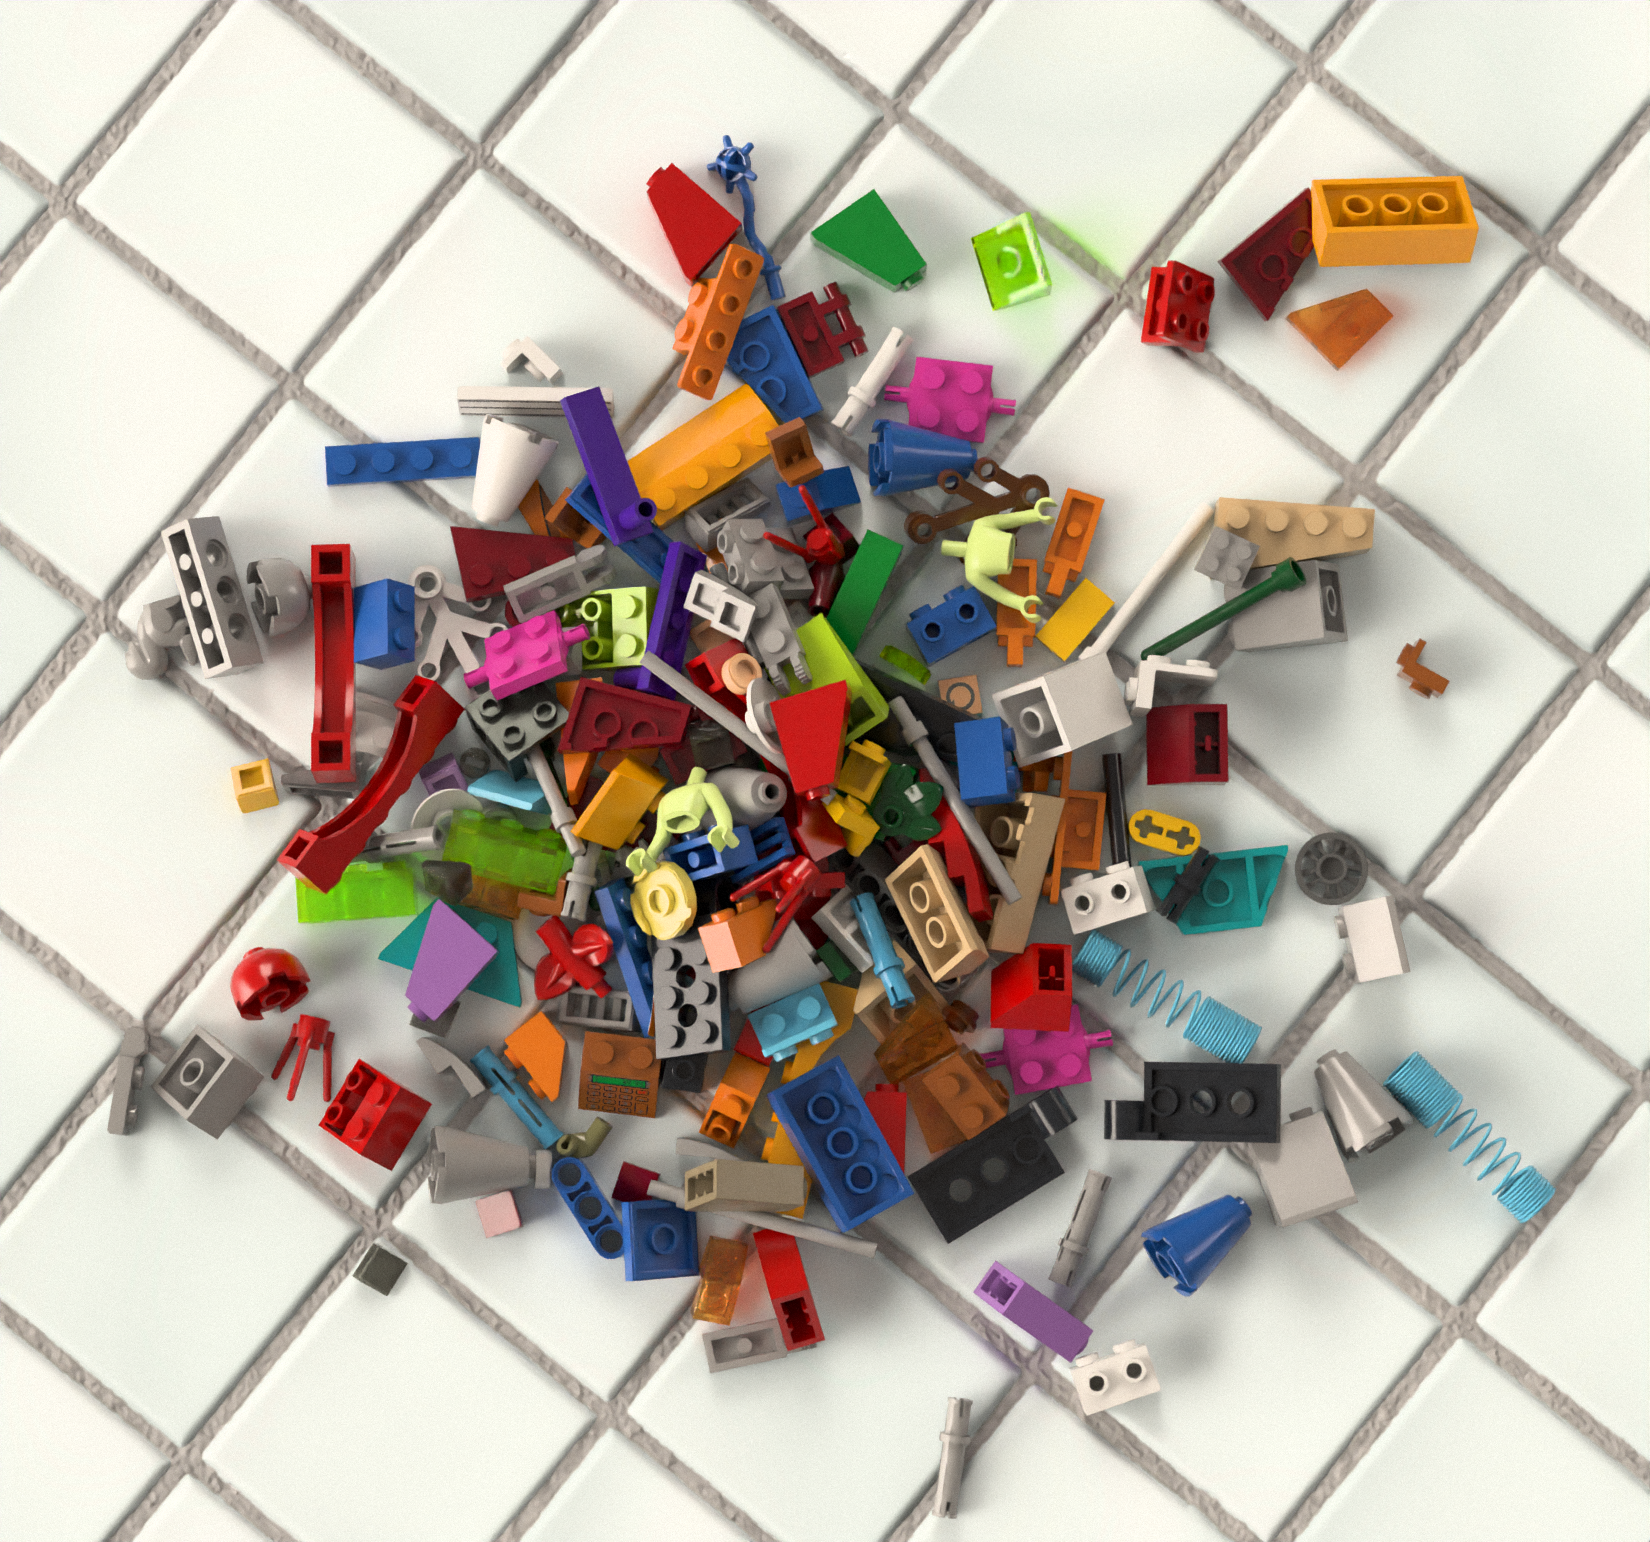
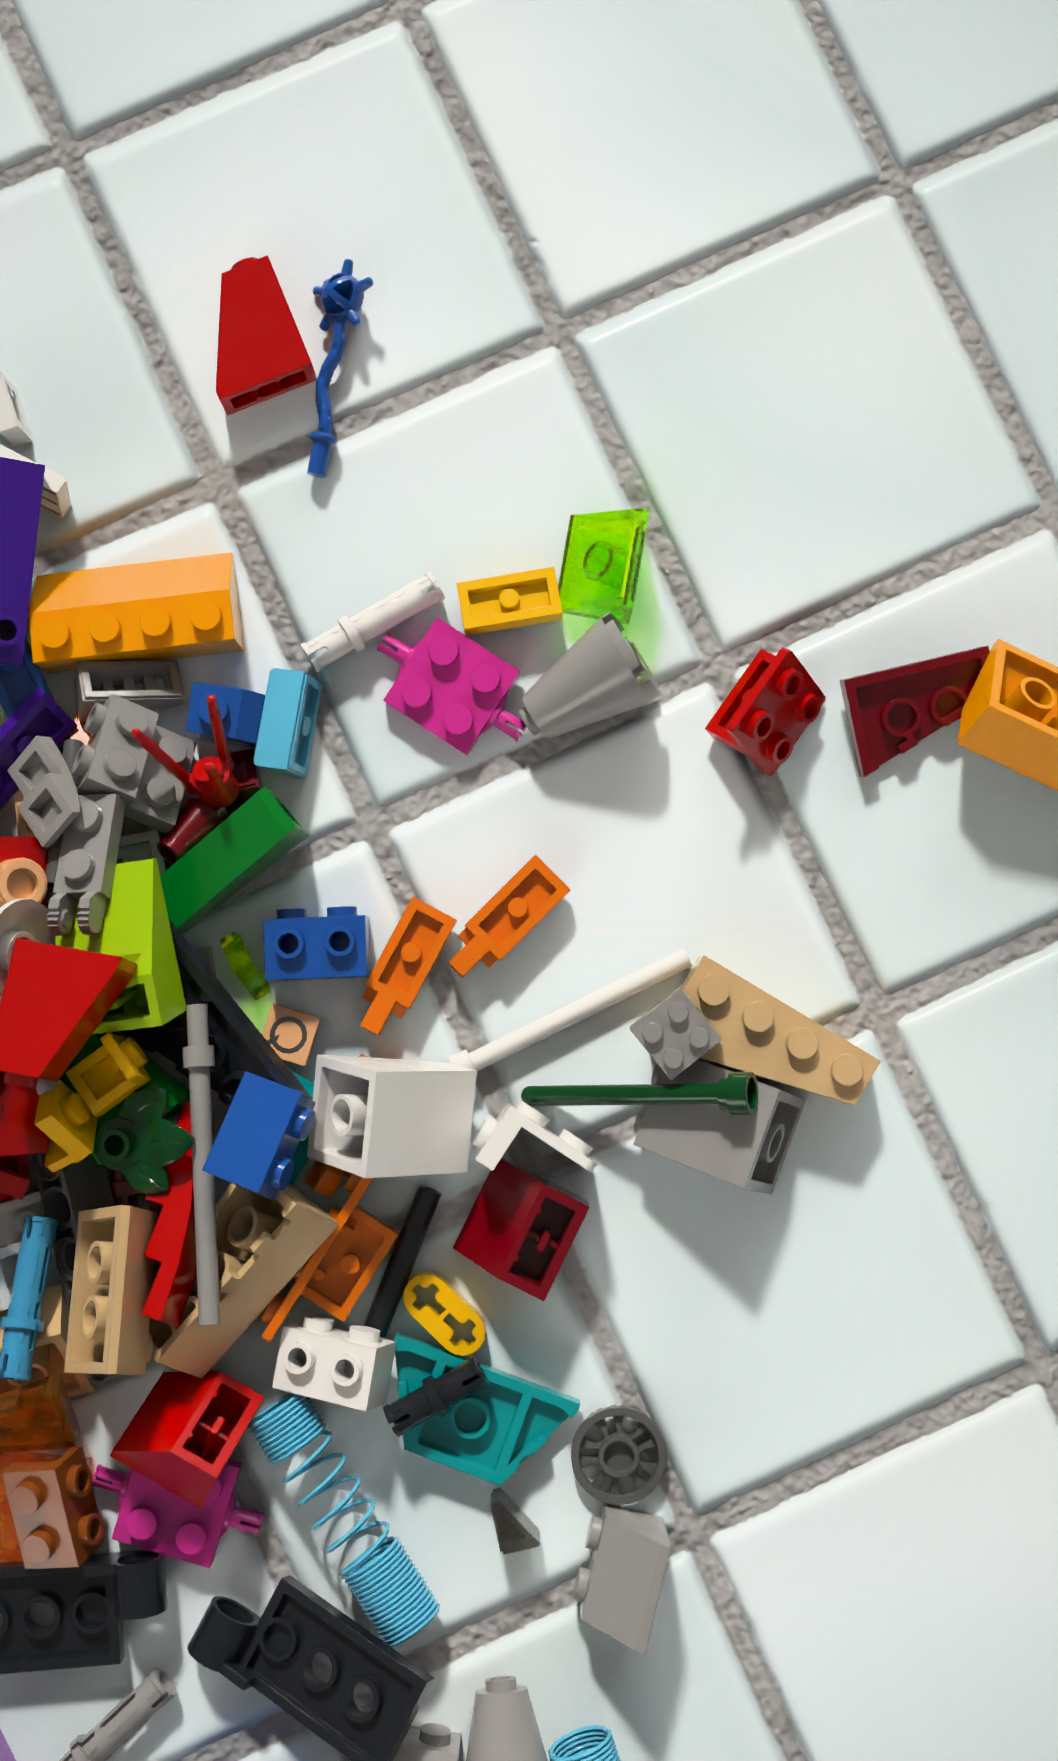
camera: 25 degrees right, 0 degrees up
(714, 320) = (227, 461): orange bracket -> none
(772, 366) = (267, 541): blue wing -> none
(793, 453) = (228, 653): dark orange bracket -> none
(812, 335) = (331, 534): dark red plate -> none
(850, 481) = (288, 722): none -> medium azure slope
(872, 244) = (452, 461): green slope -> none
(914, 457) = (377, 734): blue cone -> none
(960, 320) = (509, 601): none -> yellow plate
(960, 1017) = (94, 1413): reddish brown plate -> none
(983, 502) = (424, 831): reddish brown plant -> none
(992, 553) = (405, 887): yellowish green piece -> none
(1046, 350) = (590, 682): none -> light grey cone
(1074, 619) = (467, 1011): yellow tile -> none
(1280, 949) = (512, 1525): none -> clear smoke slope
(1341, 325) = (946, 823): clear orange wing -> none
(1422, 680) = (836, 1288): dark orange bracket -> none

